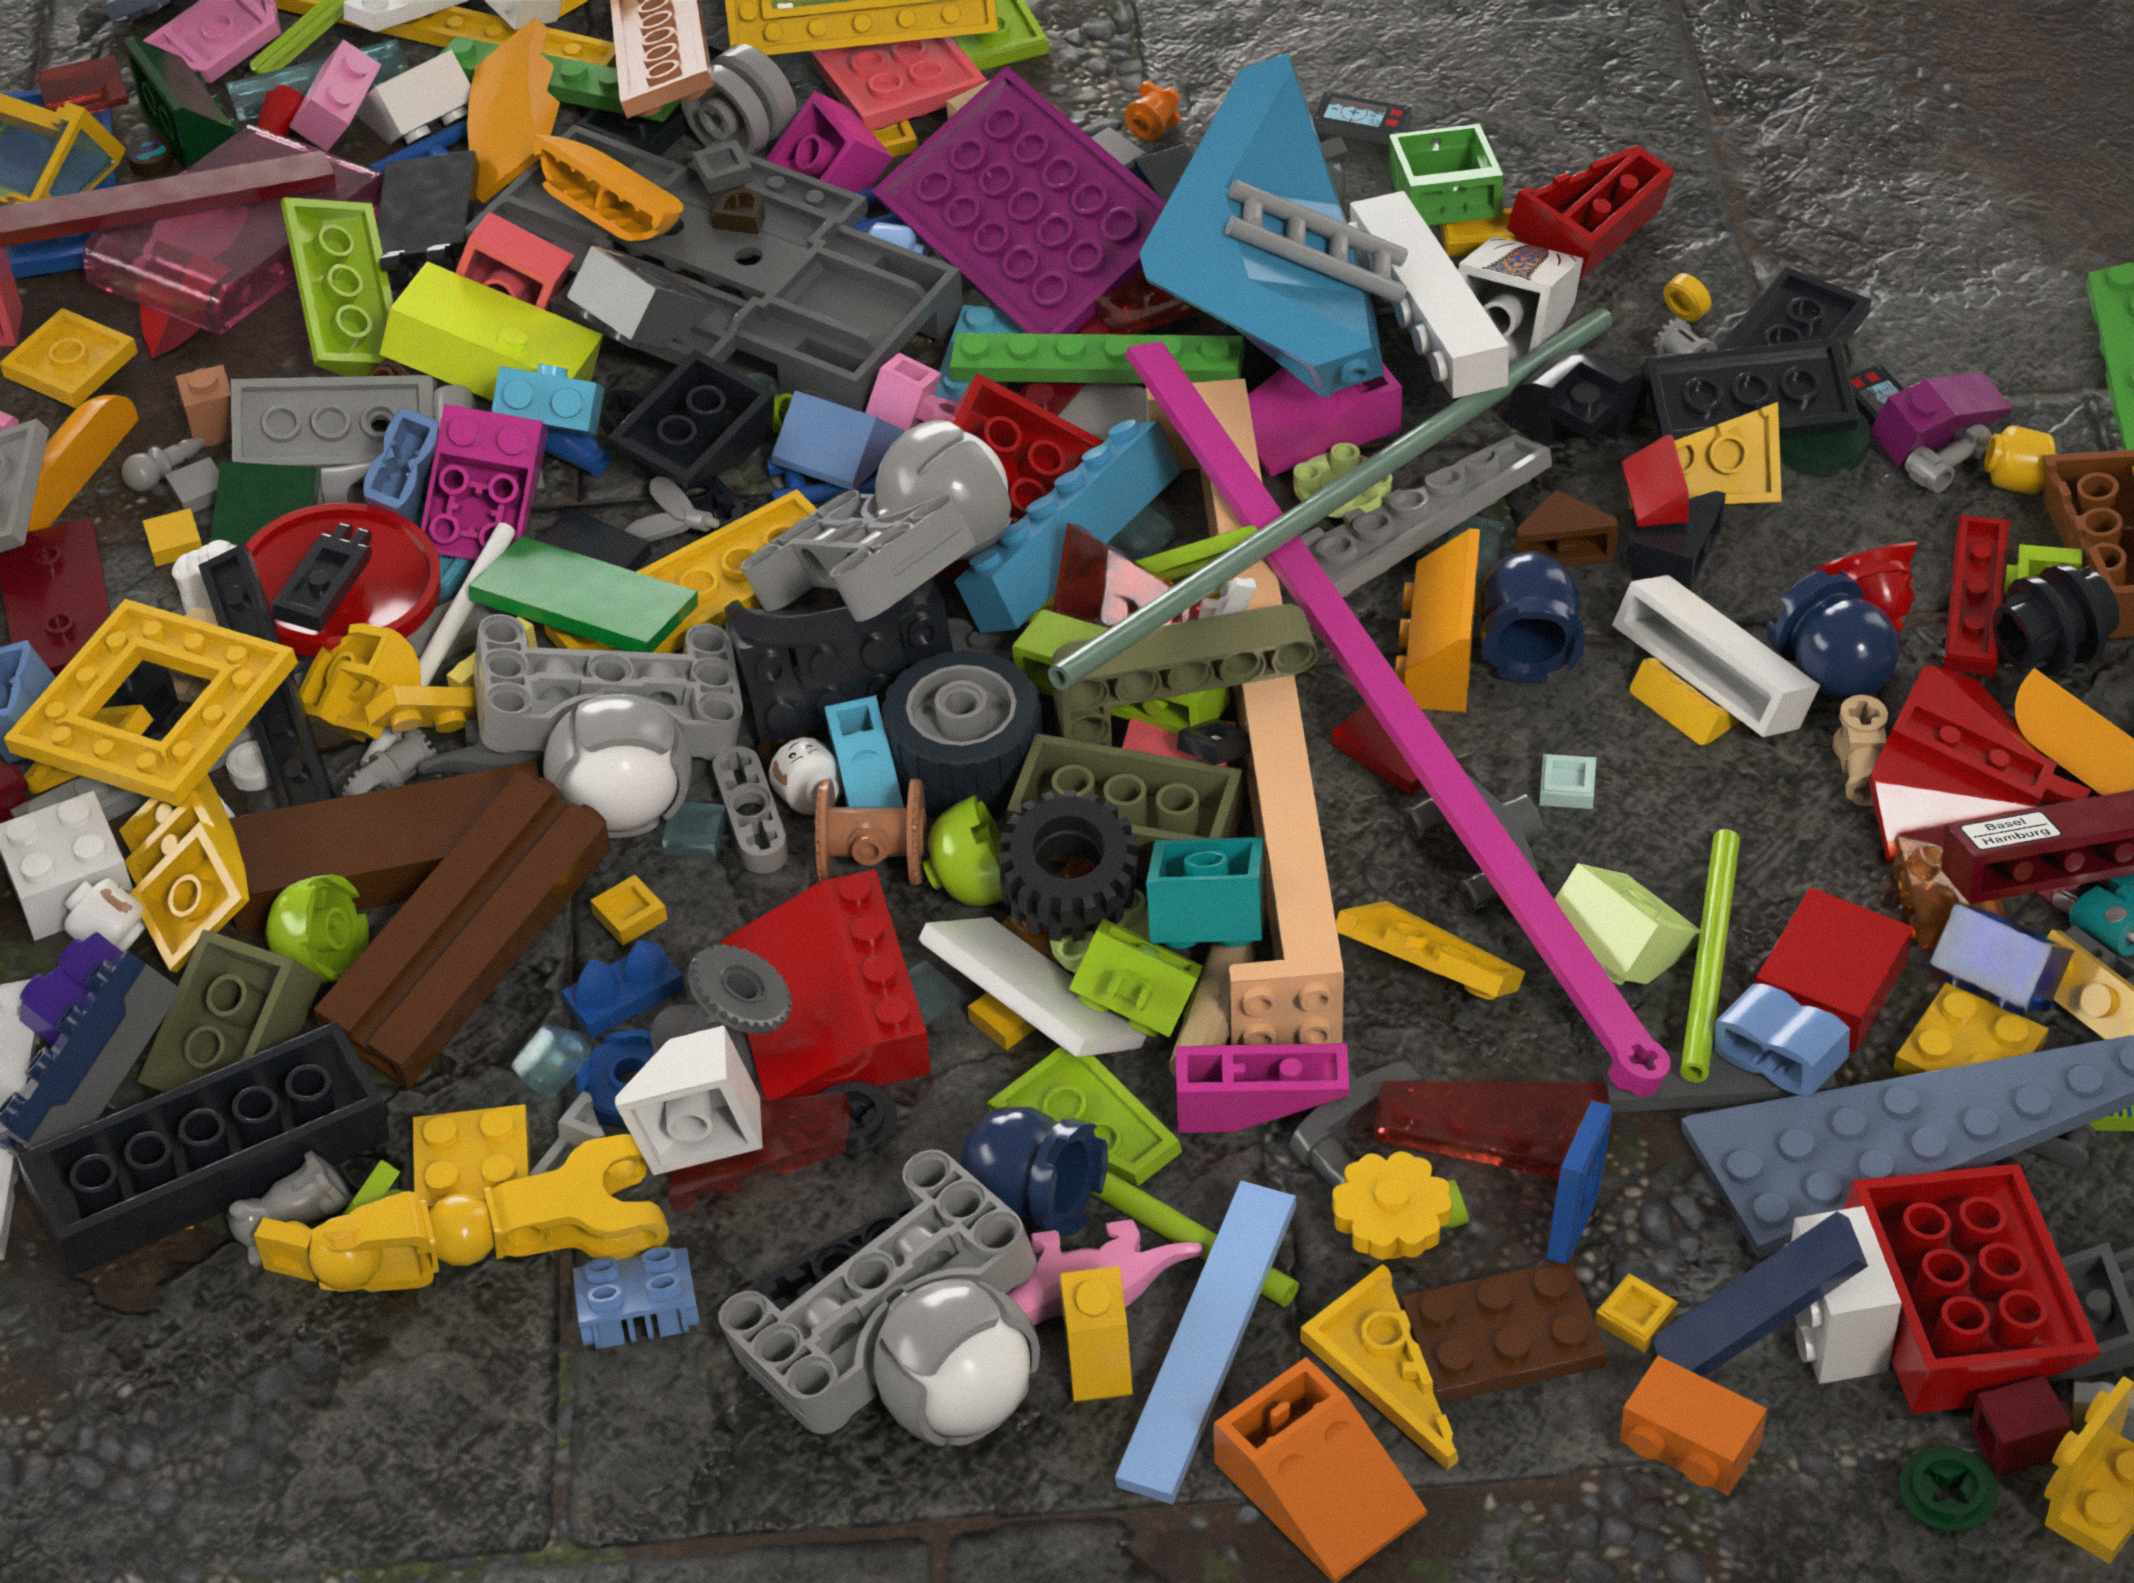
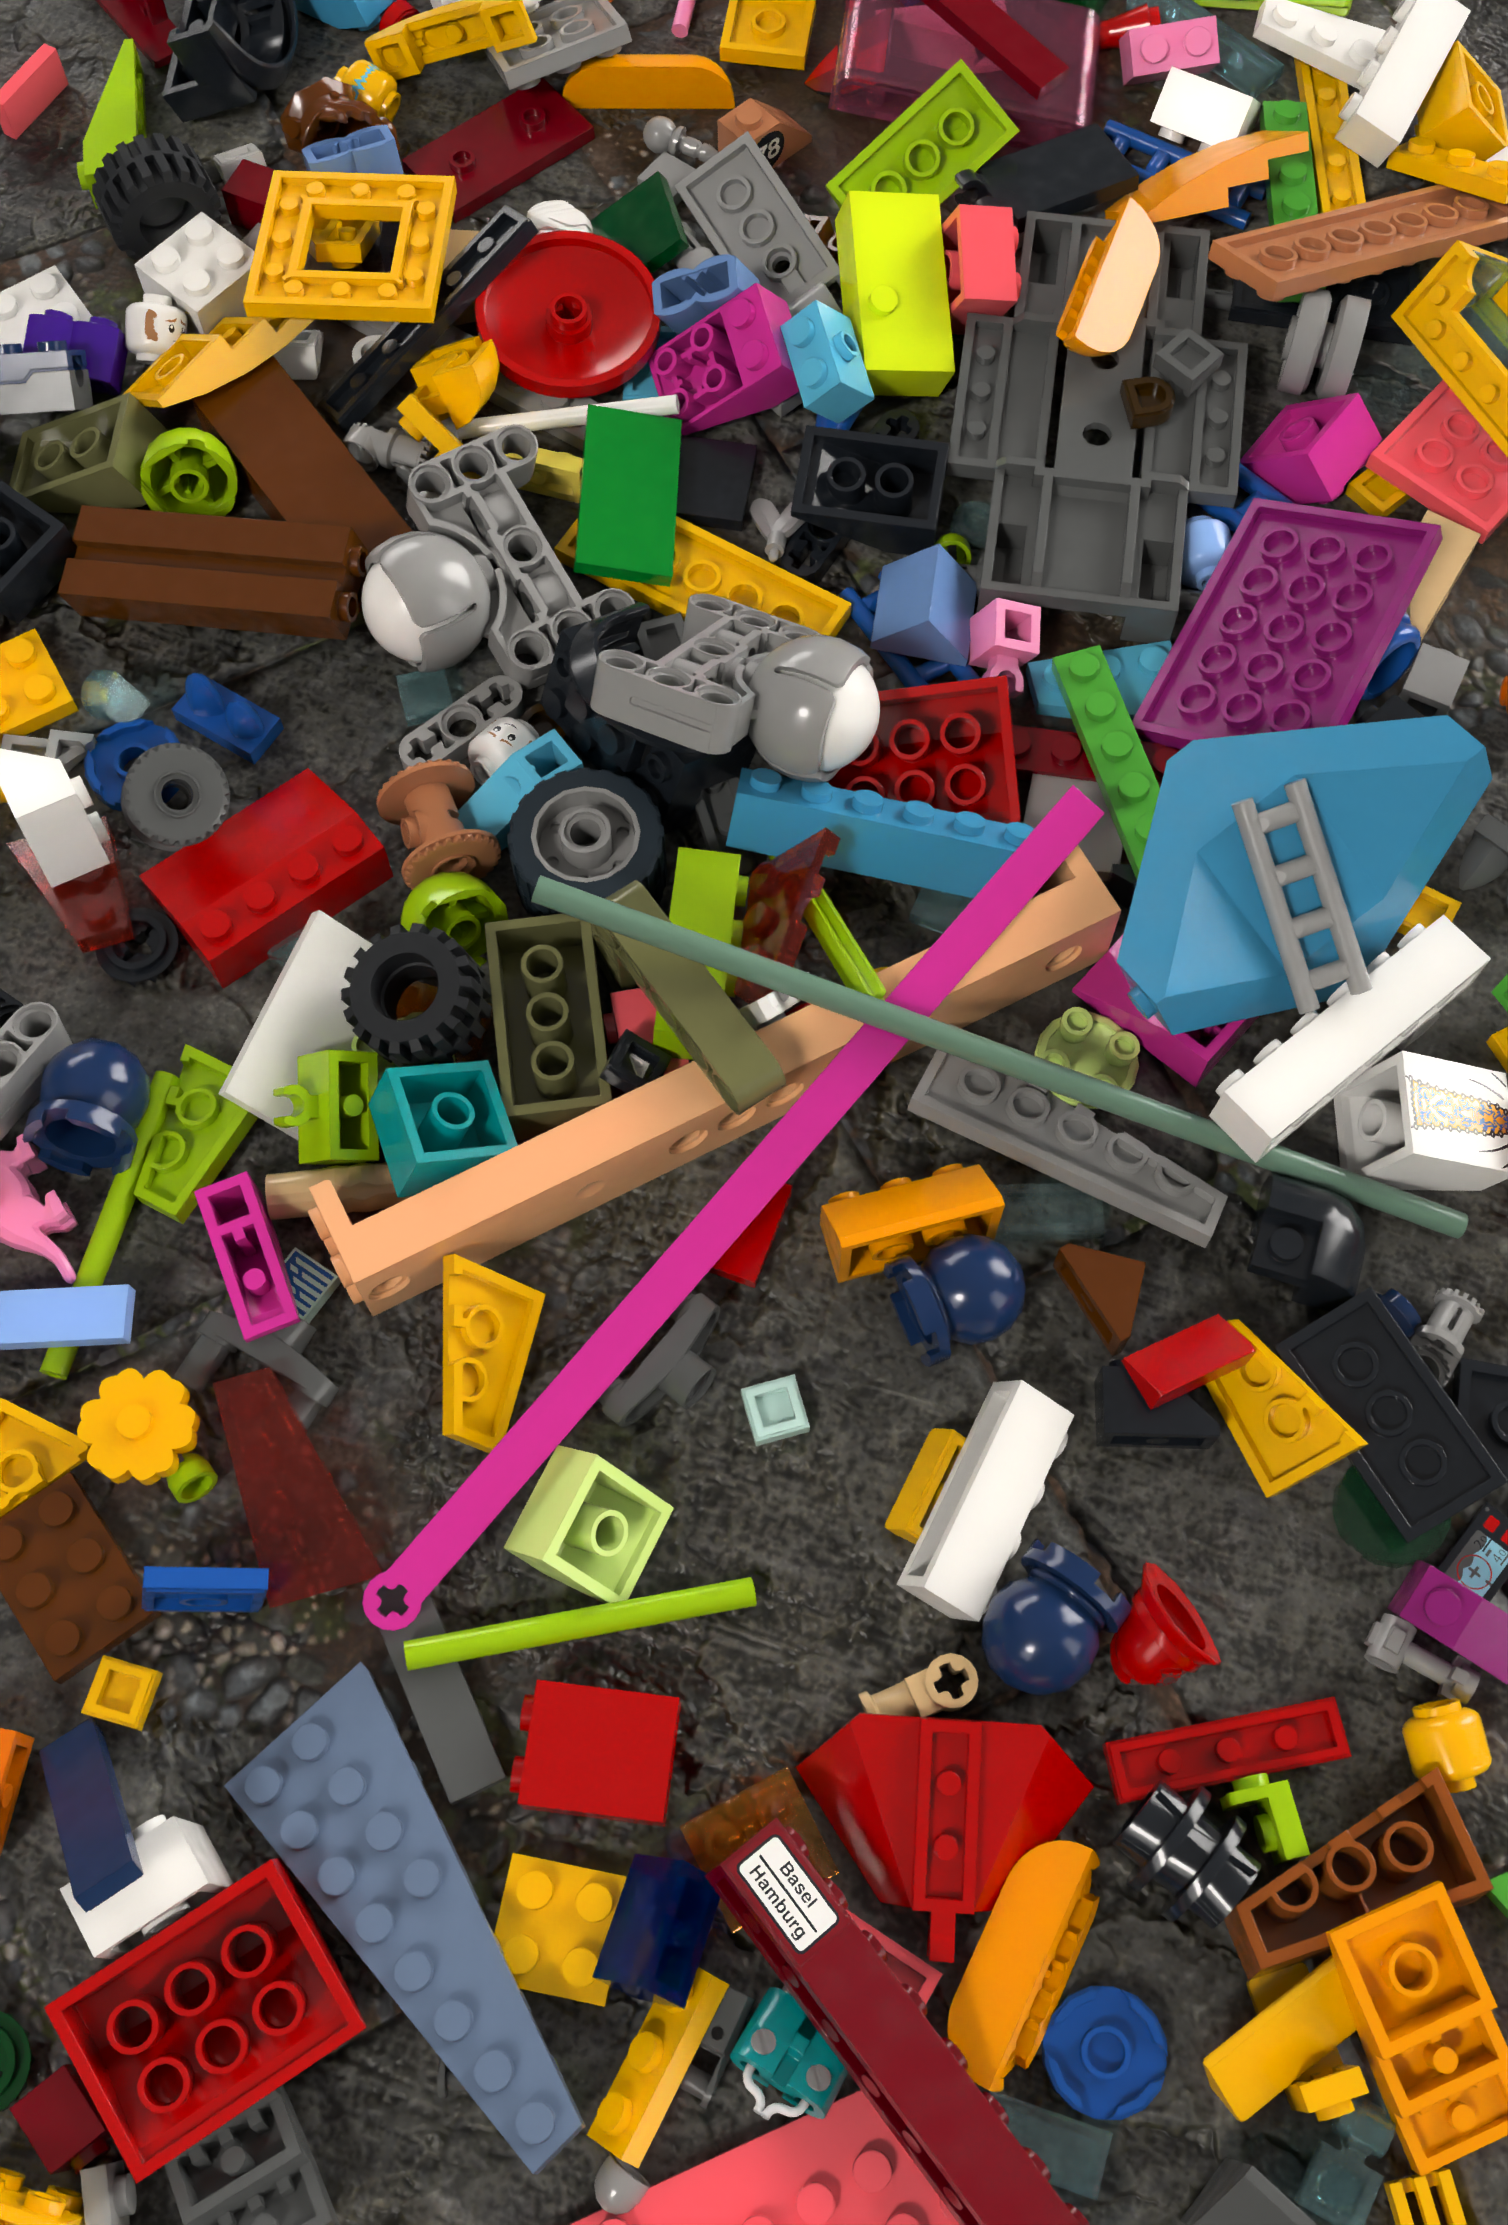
camera: 65 degrees right, 20 degrees up
(172, 536) = (601, 188): yellow tile -> none
(324, 578) = (541, 297): black hinge -> none
(628, 910) = (307, 685): yellow plate -> none
(635, 299) = (984, 370): slope -> none
(1782, 1039) = (465, 1731): medium blue brick -> none

